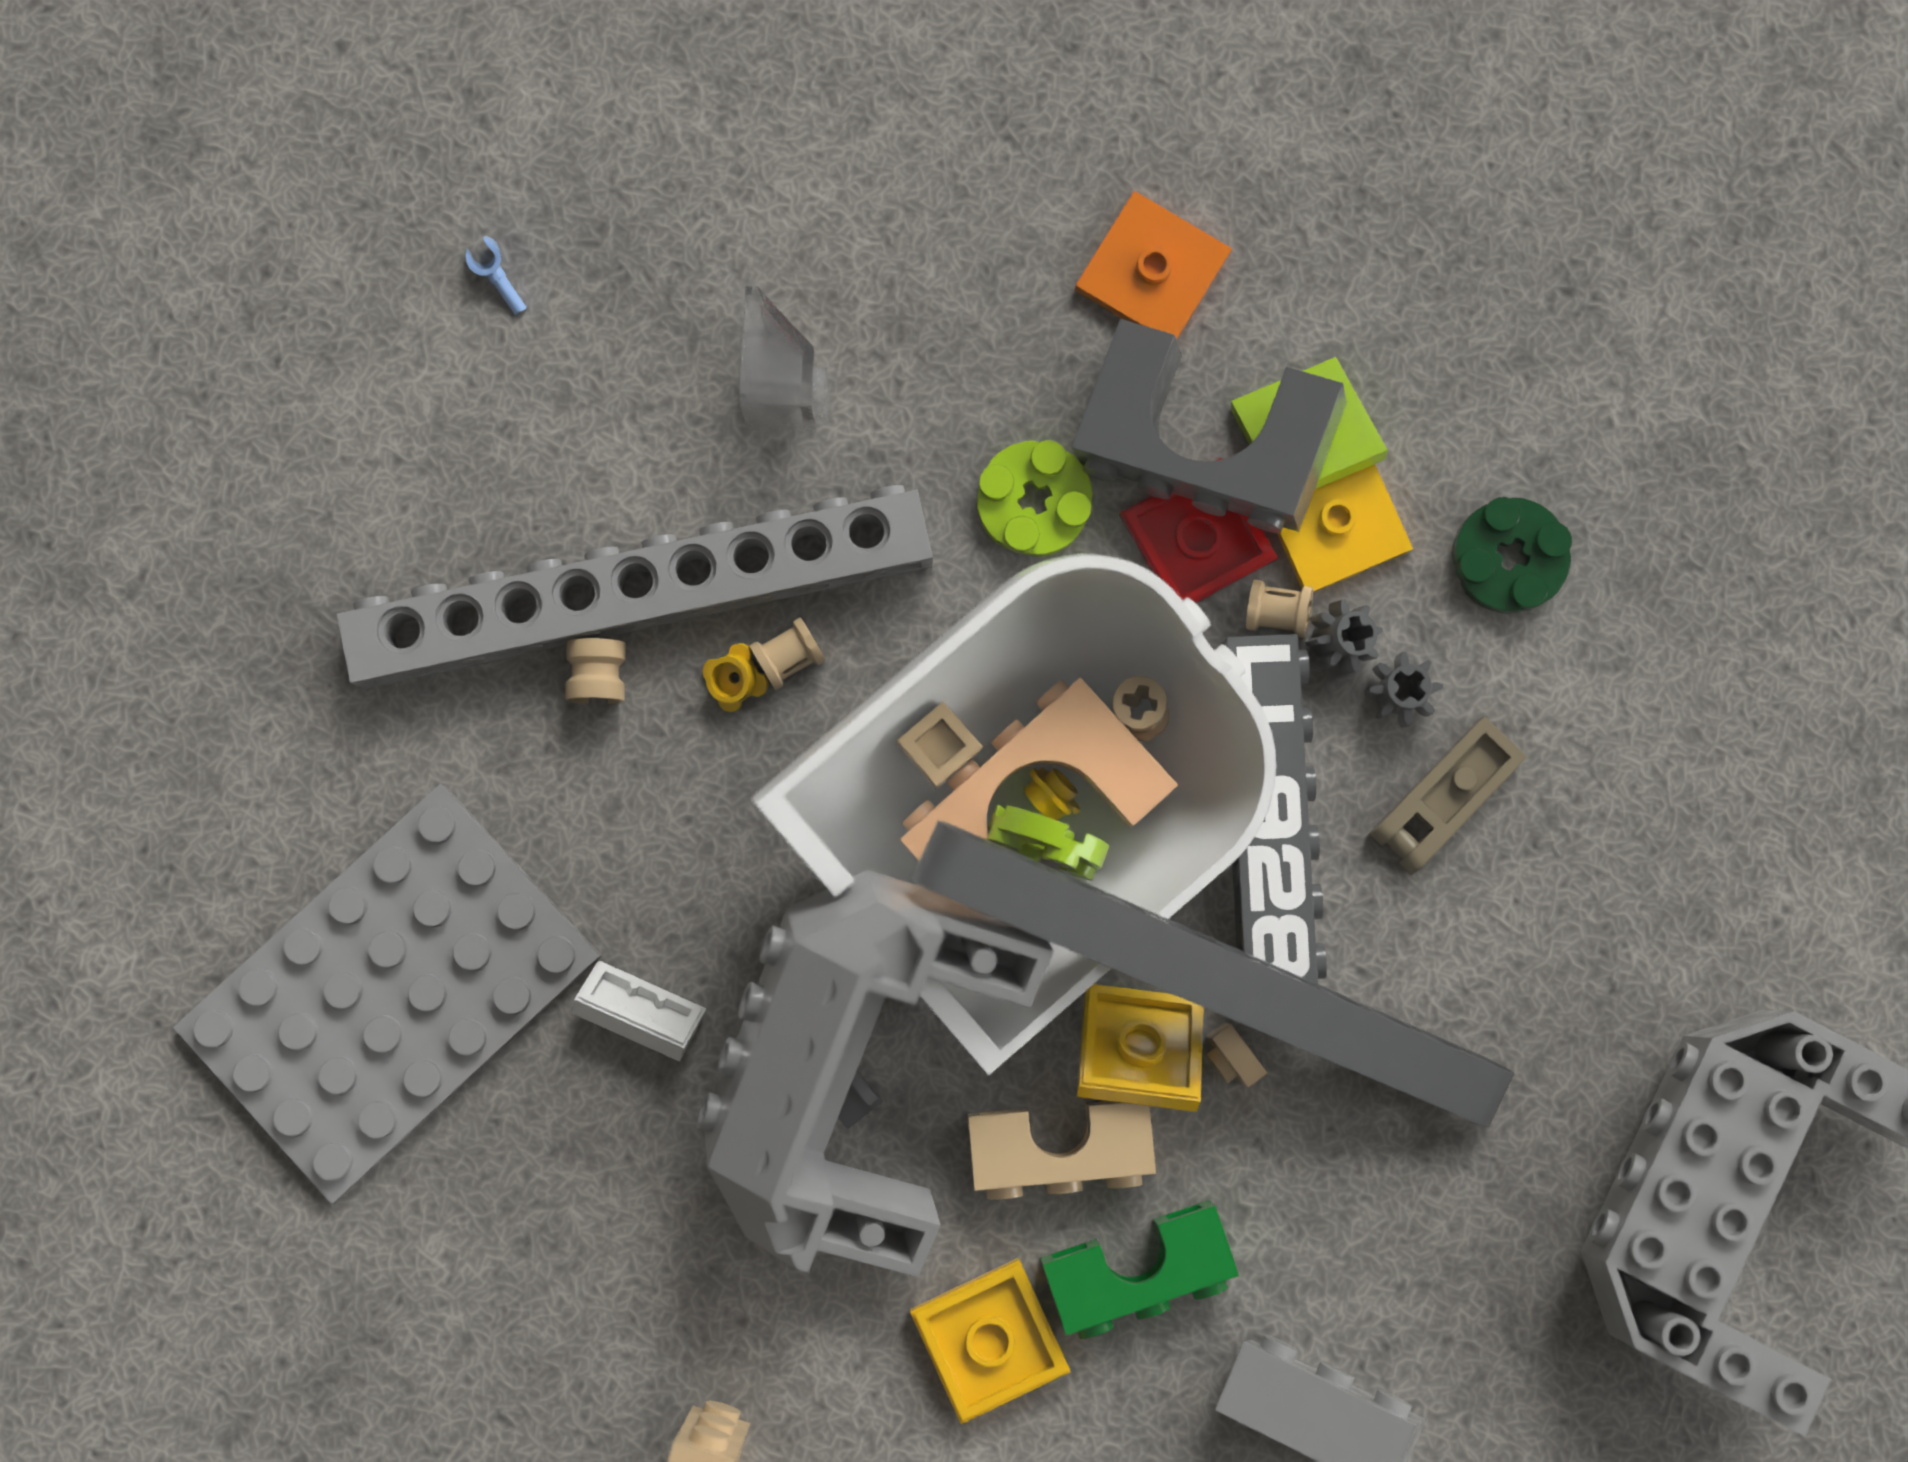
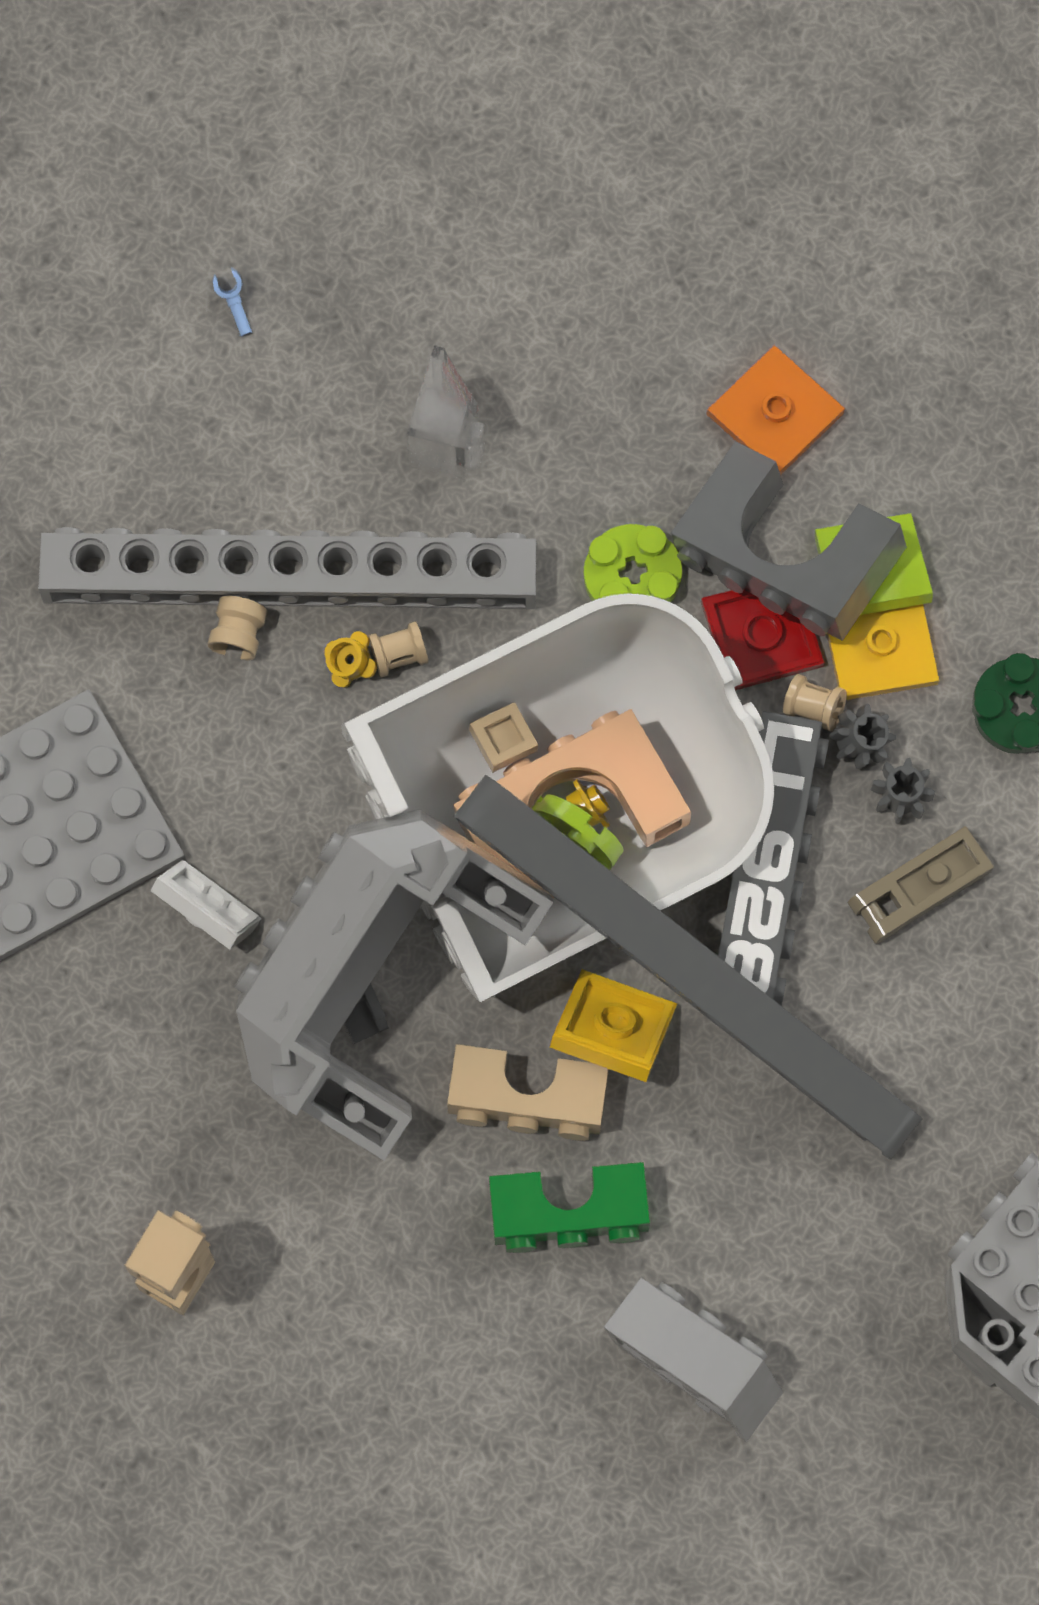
camera: 20 degrees right, 10 degrees down
(989, 1340) = (431, 1237): yellow plate -> none
(1129, 695) = (677, 734): tan bush -> none
(1233, 1057) = (689, 1053): tan plate -> none

